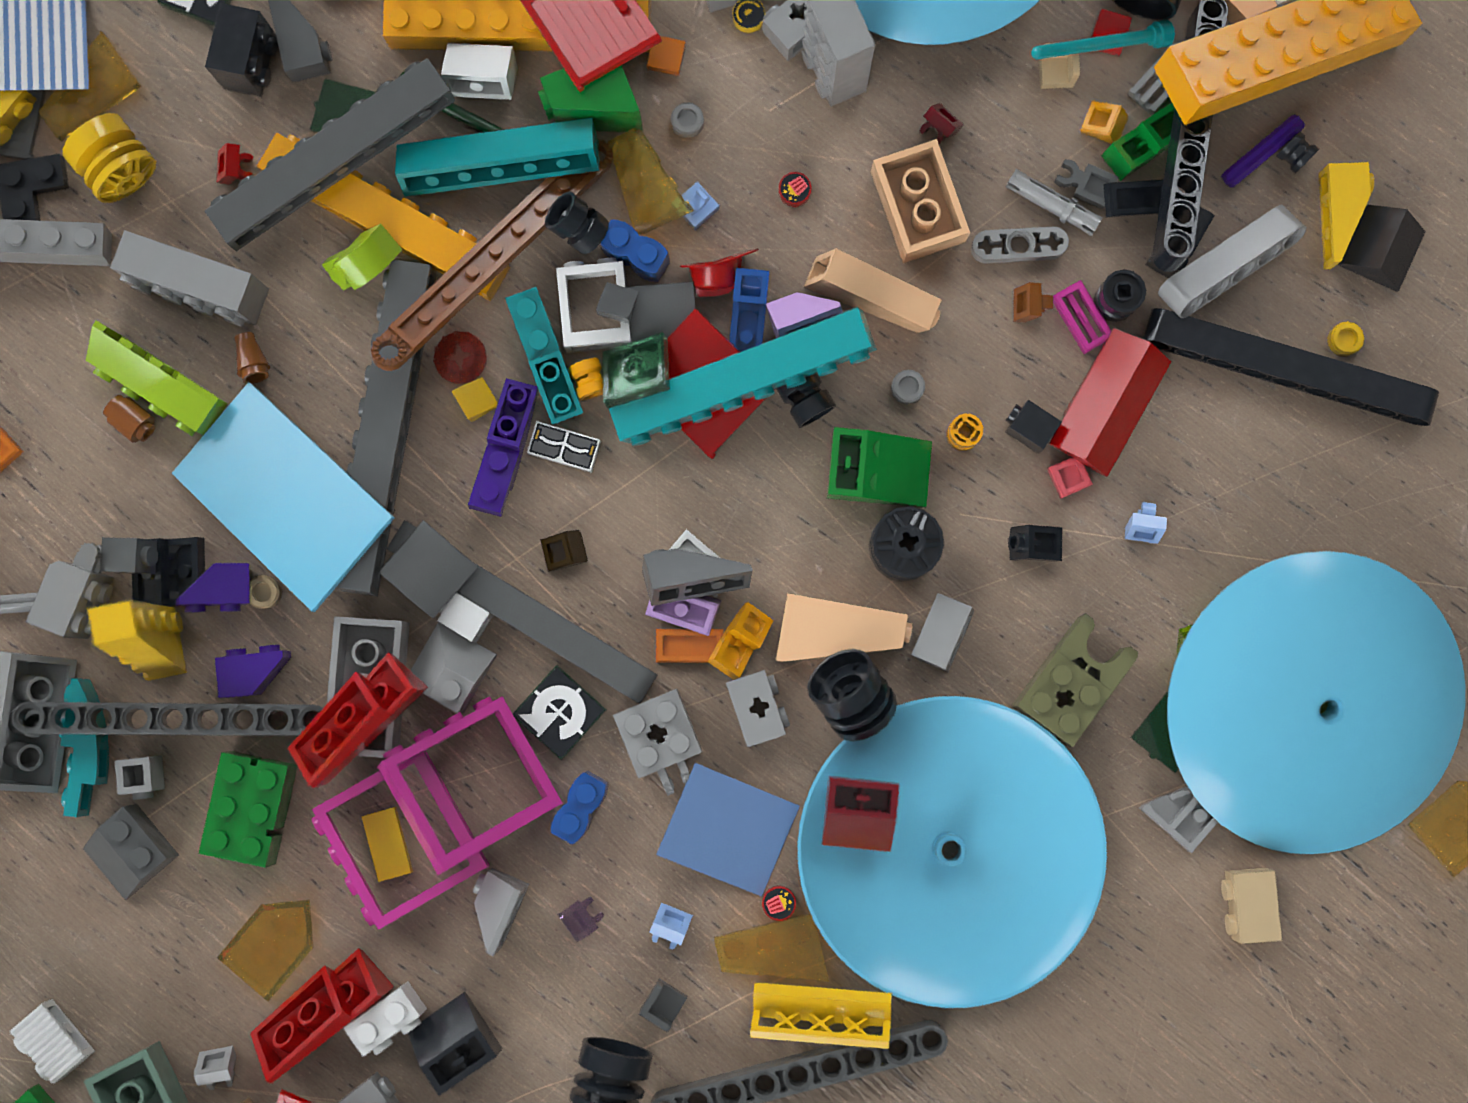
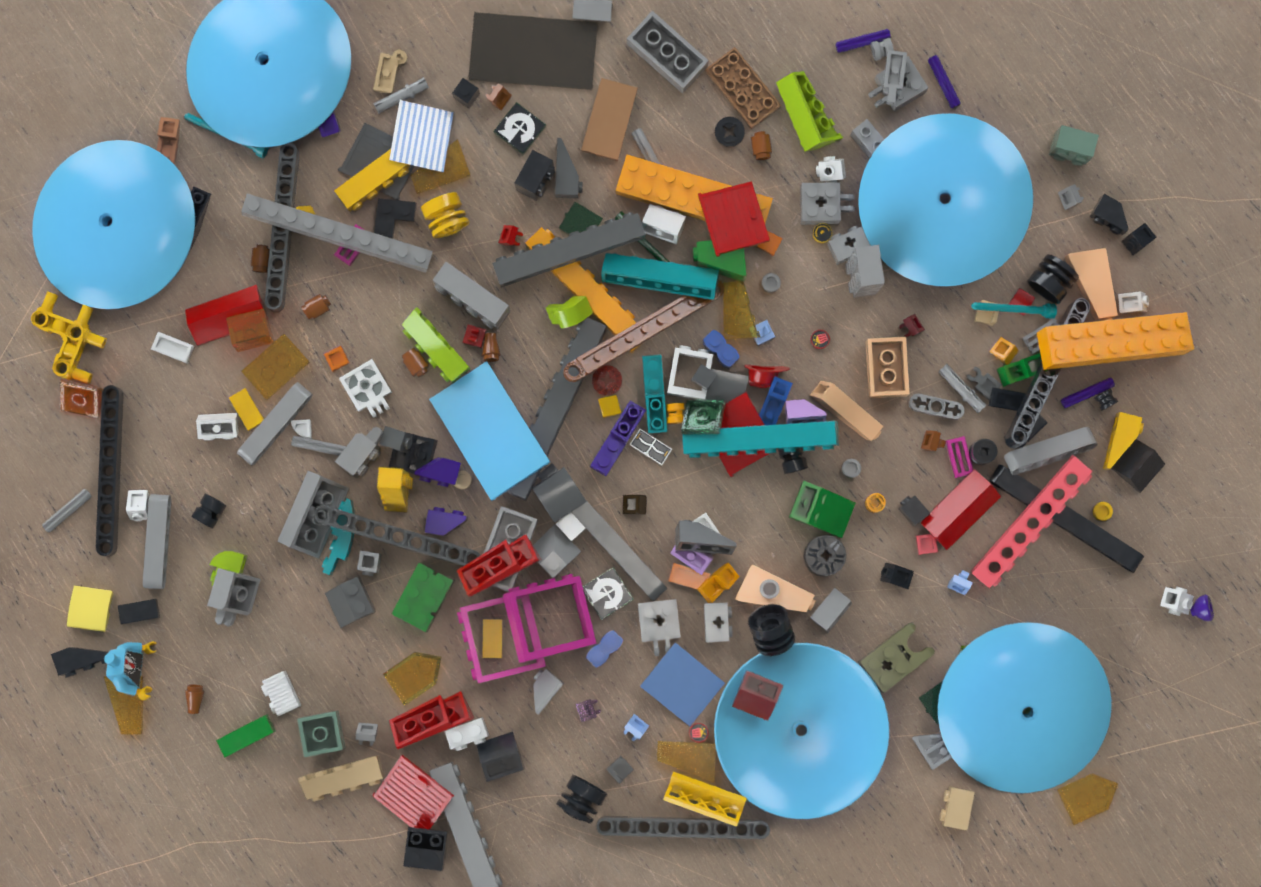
camera: 10 degrees right, 0 degrees up
(60, 483) = (366, 387): none -> white piece
(218, 347) = (474, 336): none -> red tile
(573, 220) = (694, 326): black wheel -> none
(829, 626) = (769, 589): none -> tile
(1302, 283) = (1072, 466): none -> coral brick

